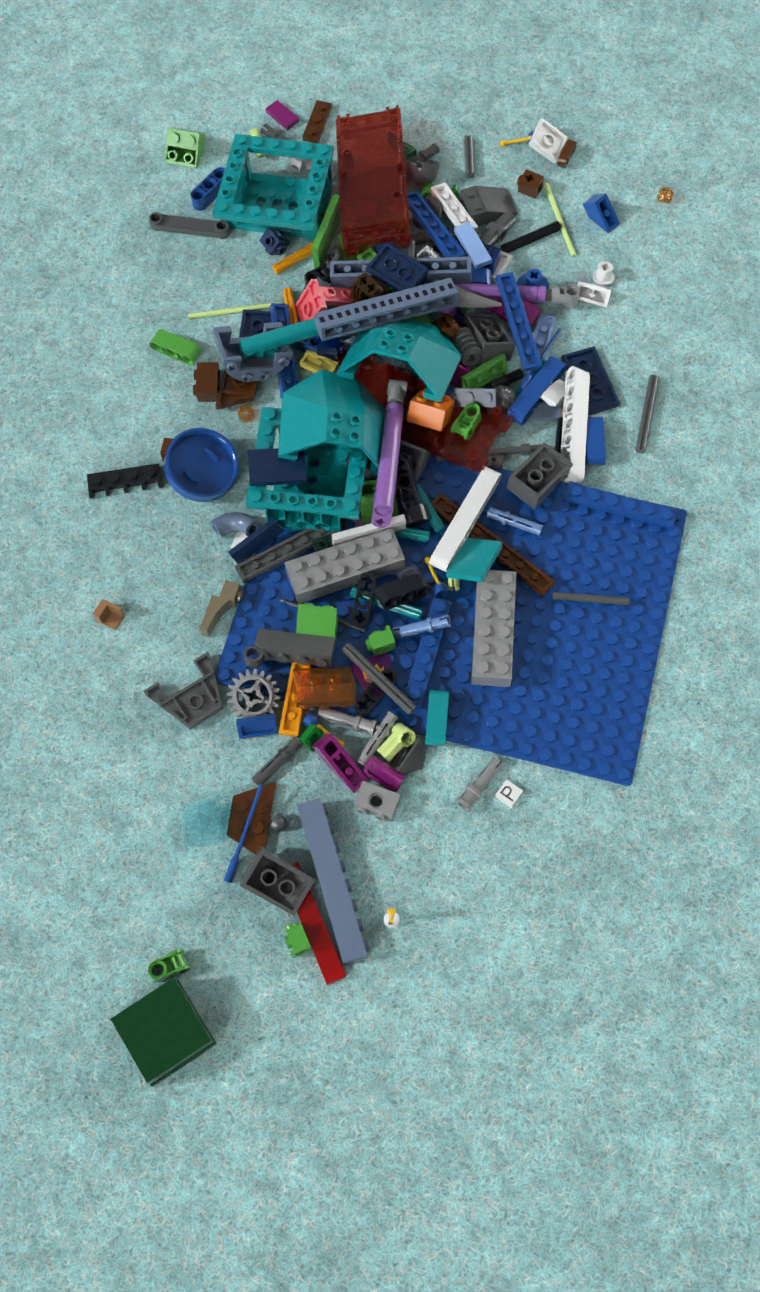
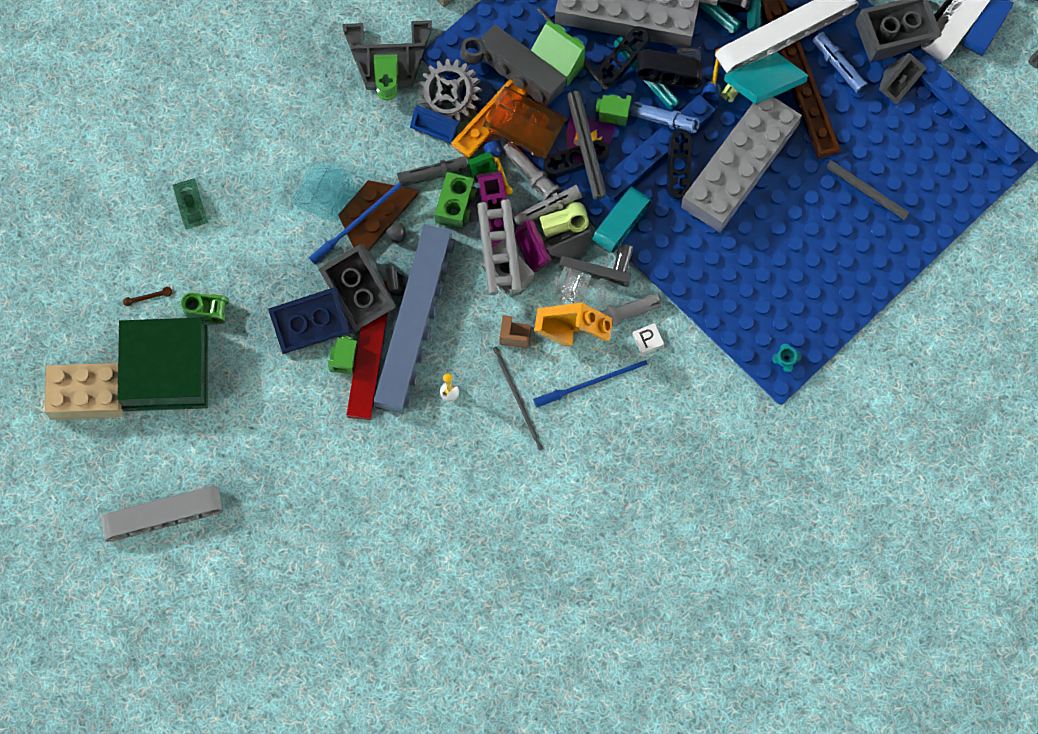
camera: 30 degrees right, 5 degrees up
(108, 892) = (190, 204): none -> clear green slope
(112, 1091) = (82, 391): none -> tan brick
(129, 972) = (167, 291): none -> reddish brown hinge
(199, 708) = (386, 74): none -> bright green piece
(232, 1151) = (161, 512): none -> light grey beam
(255, 928) = (309, 320): none -> dark blue tile
(301, 859) = (395, 281): none -> dark grey tile
(304, 774) = (451, 200): none -> bright green brick
(363, 802) = (491, 259): none -> light grey bar
(411, 846) = (514, 333): none -> medium nougat panel
(434, 789) = (571, 286): none -> clear brick
(440, 644) = (674, 147): none -> black beam
(441, 821) = (563, 320): none -> light orange panel
(444, 894) = (518, 399): none -> dark grey piece
(458, 760) = (617, 275): none -> dark grey piece
(458, 778) = (606, 293): none -> clear slope
(472, 872) = (558, 394): none -> blue piece
(562, 508) = (900, 77): none -> dark grey slope
(619, 745) = (786, 350): none -> teal plate

